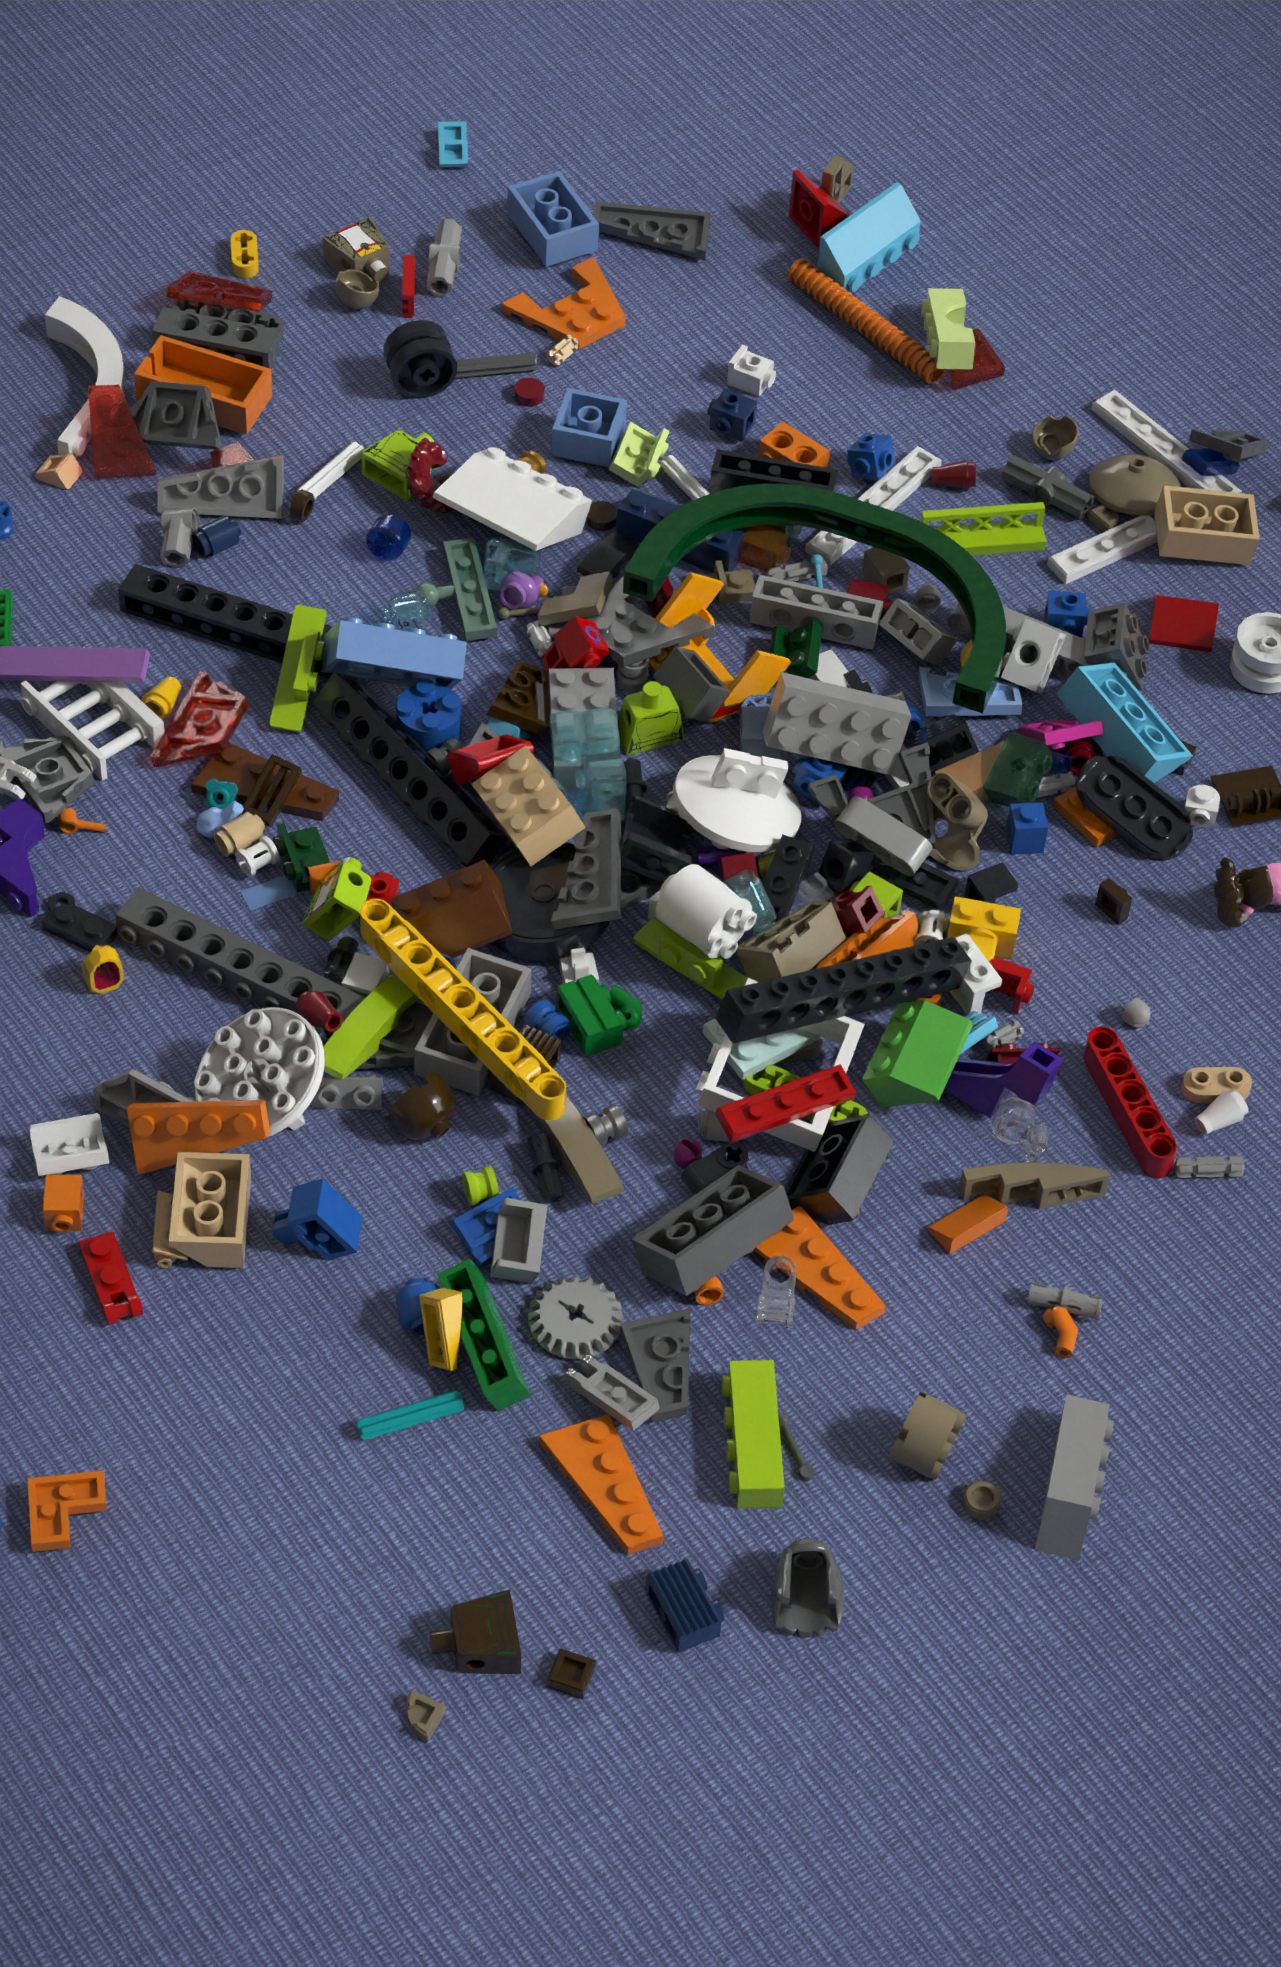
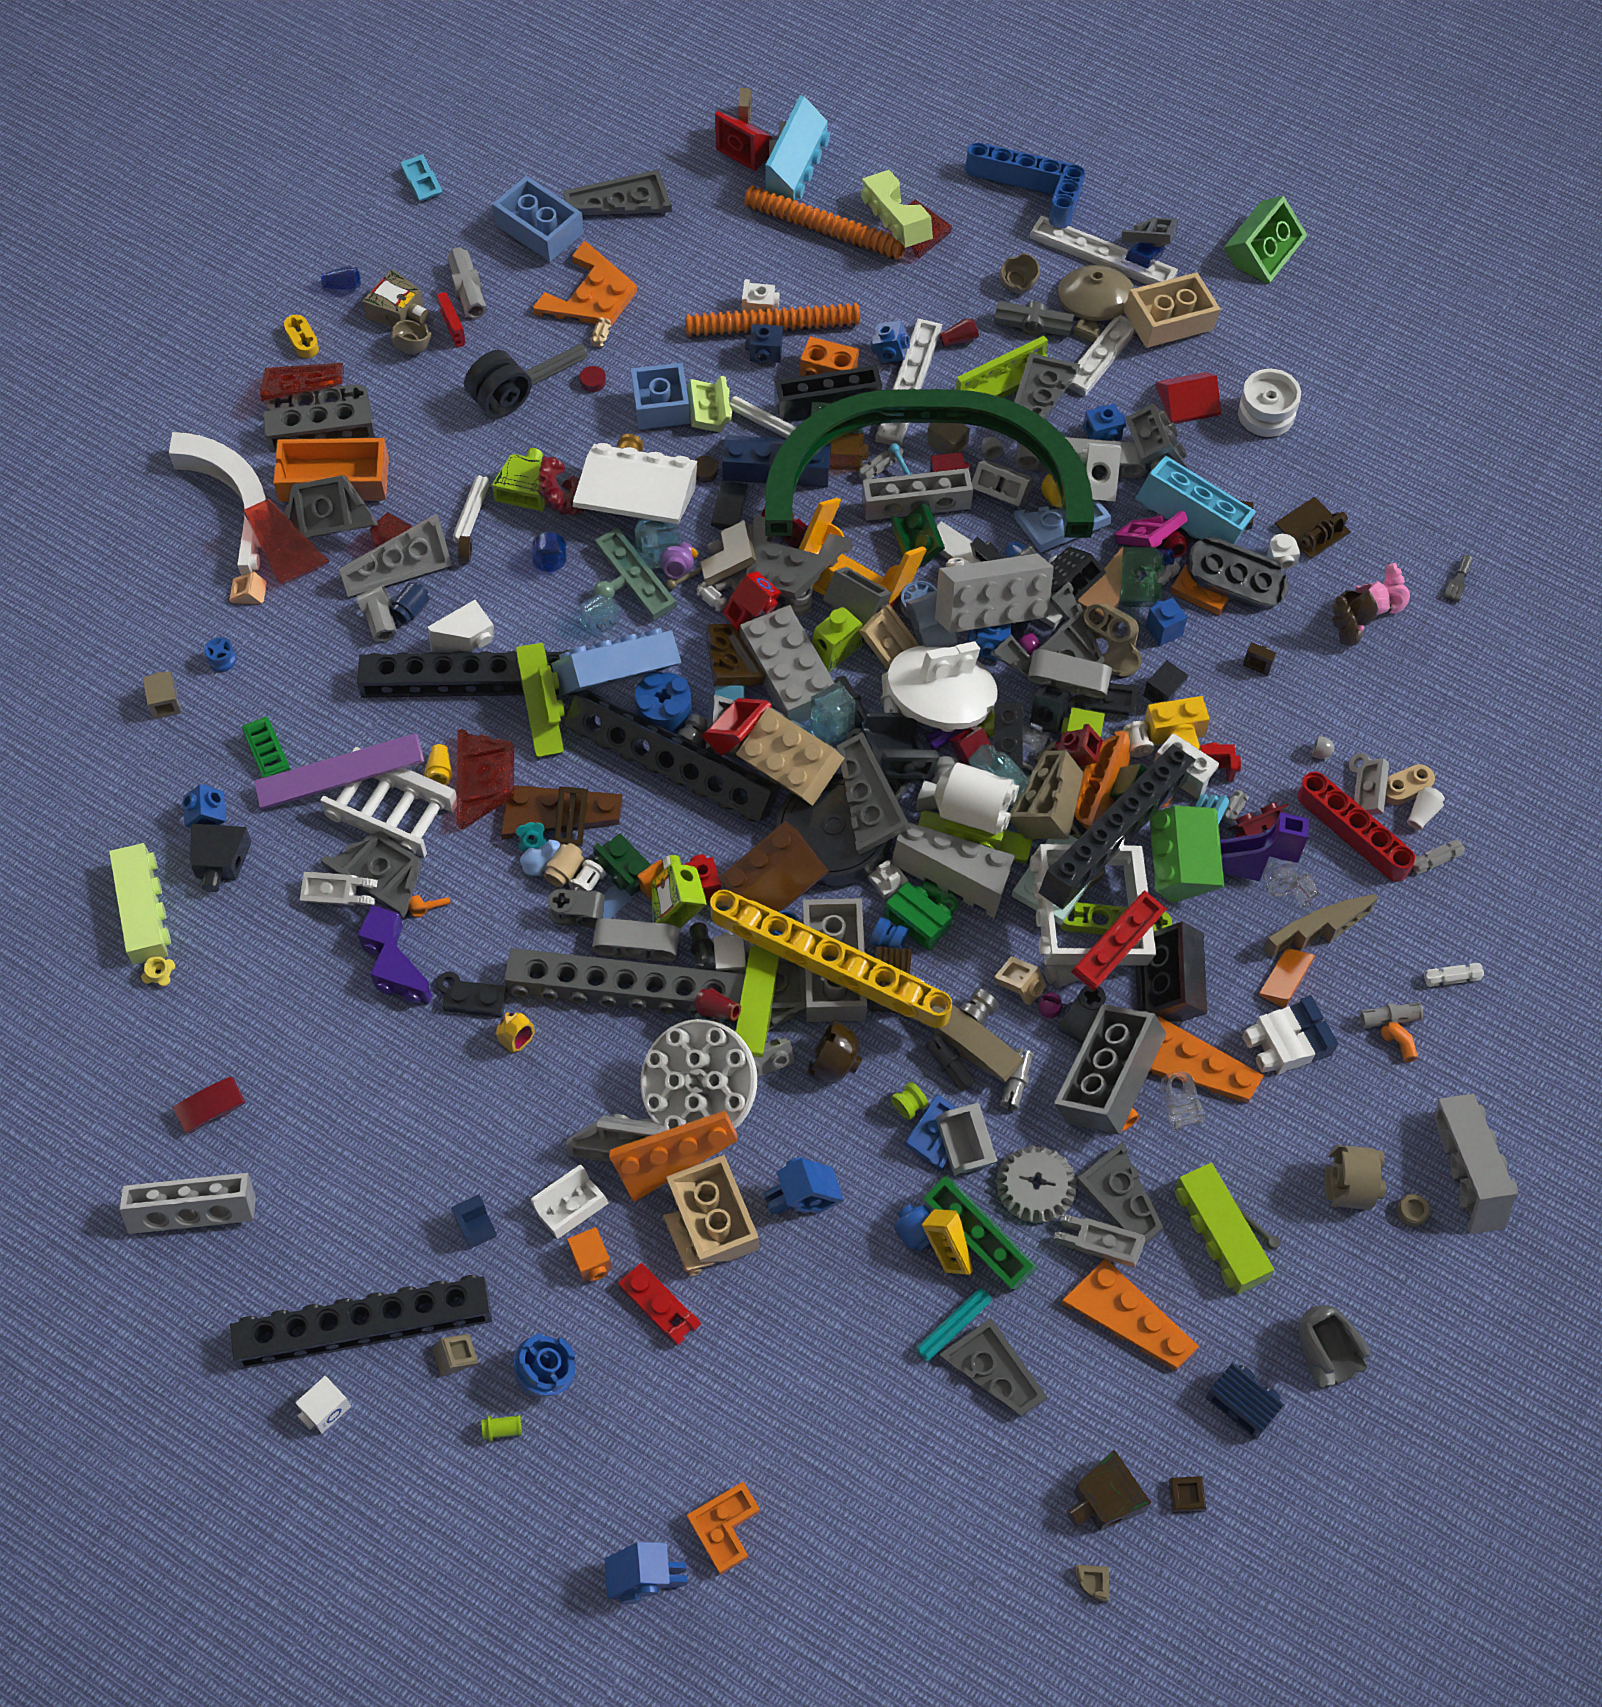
camera: 20 degrees left, 10 degrees up
(232, 881) = (578, 909): none -> dark grey piece
(250, 573) = (461, 630): none -> white slope
(276, 930) = (635, 940): none -> light grey beam
(316, 212) = (342, 278): none -> clear blue cone
(430, 1470) = (996, 1368): none -> dark grey wing
(583, 733) = (803, 676): clear light blue brick -> none
(609, 1211) = (1017, 1082): none -> light grey pin
(656, 978) = (955, 865): none -> light grey wedge
(670, 1116) = (1022, 979): none -> tan bracket
(704, 731) = (887, 635): none -> tan plate
(737, 584) = (840, 488): dark tan bracket -> none
(766, 398) = (787, 318): none -> orange piece
(936, 1279) = (1291, 1037): none -> white hips
(1018, 551) = (1044, 383): none -> dark grey wing
(1152, 361) = (1030, 172): none -> blue beam
(1161, 1288) = (1453, 974): none -> white axle
(1171, 1065) = (1370, 782): none -> light grey hinge

